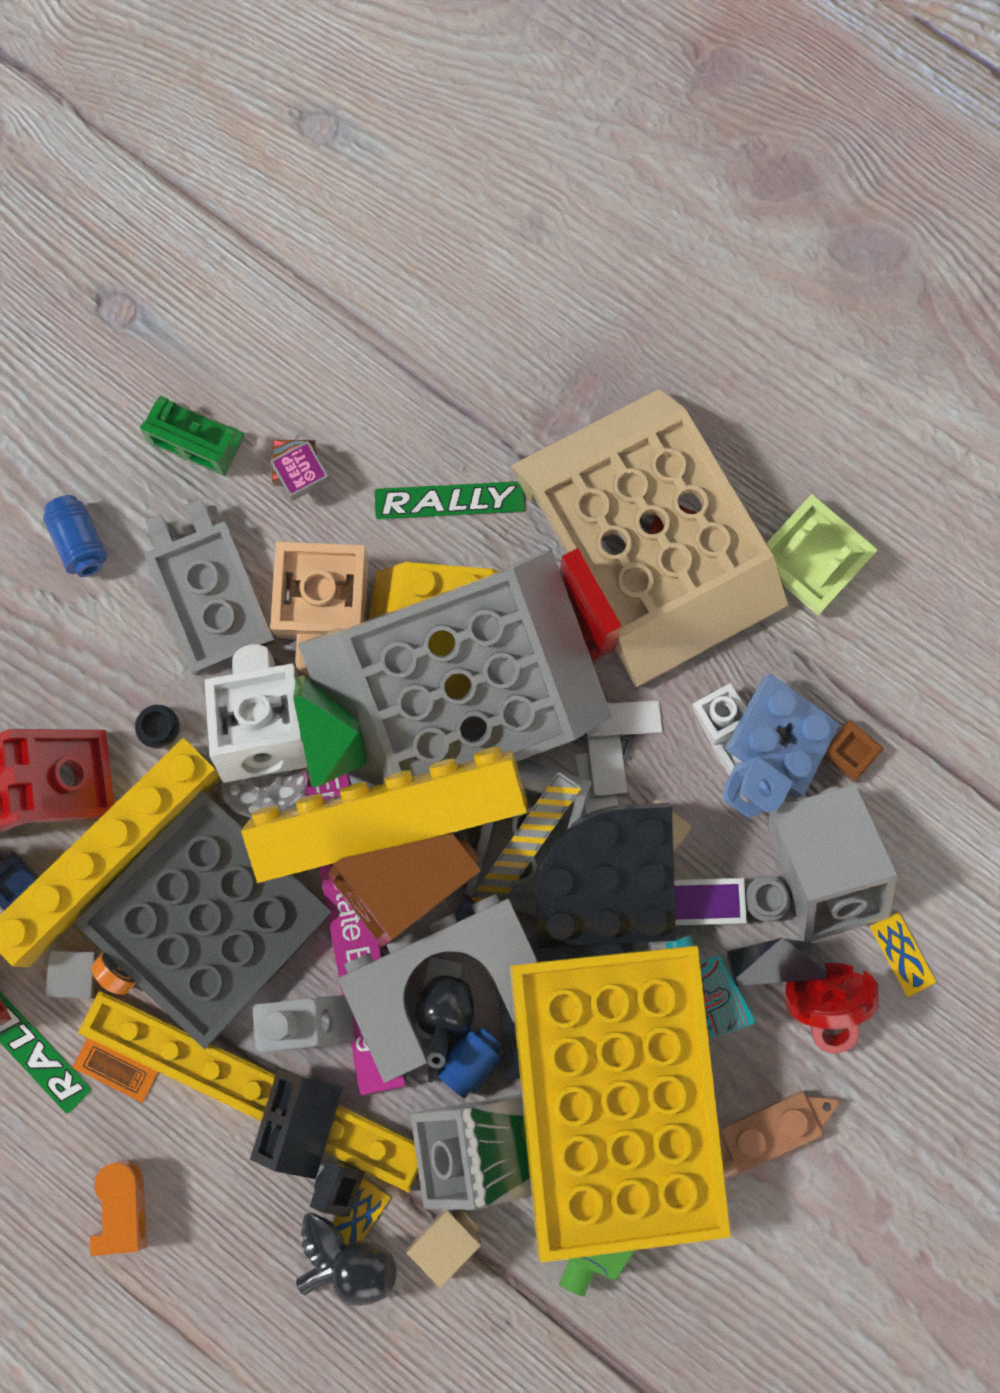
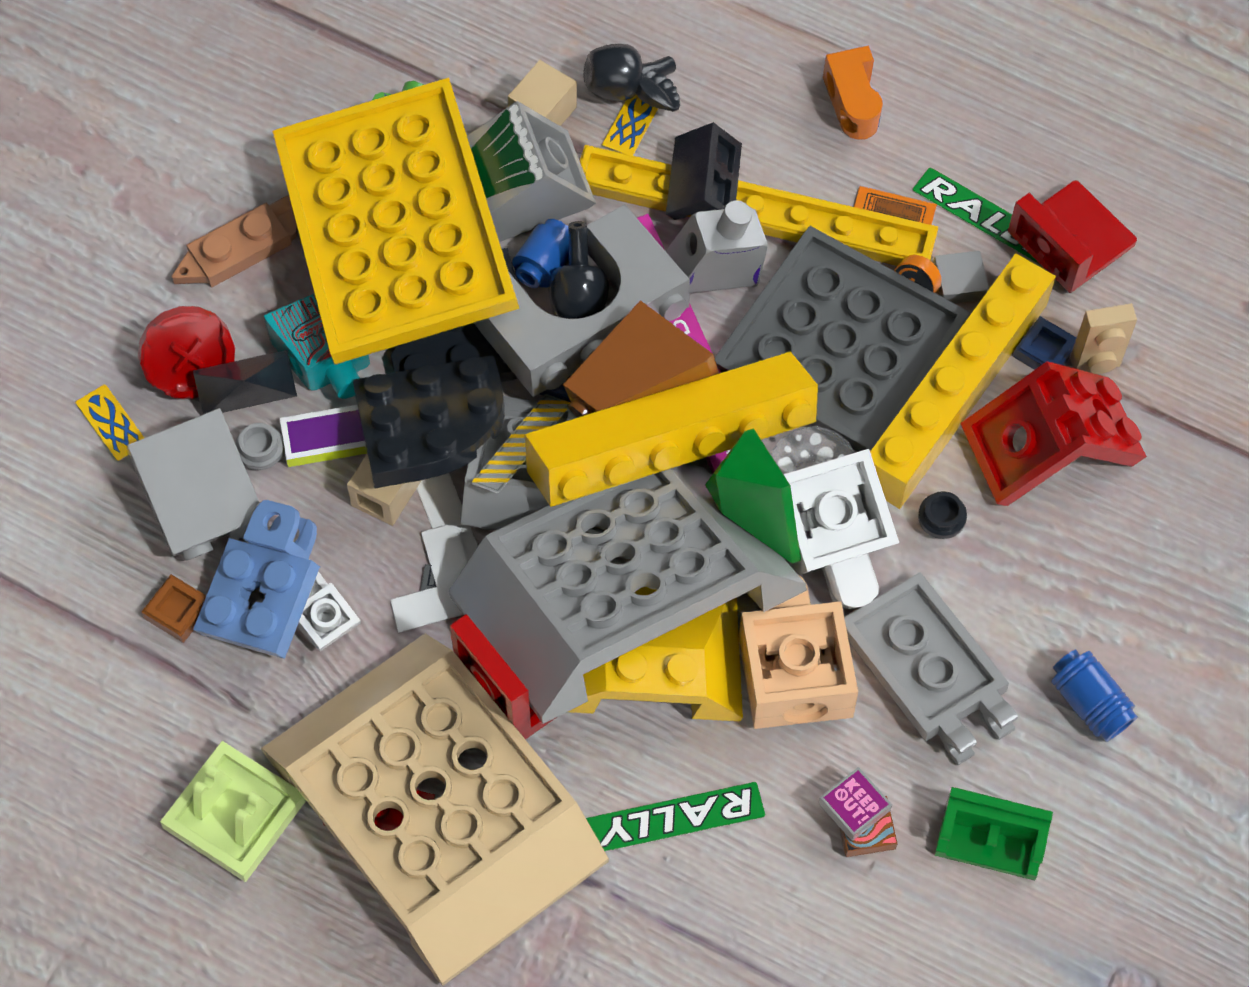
camera: 170 degrees right, 15 degrees down
(336, 1188) = (654, 132): black plate -> none

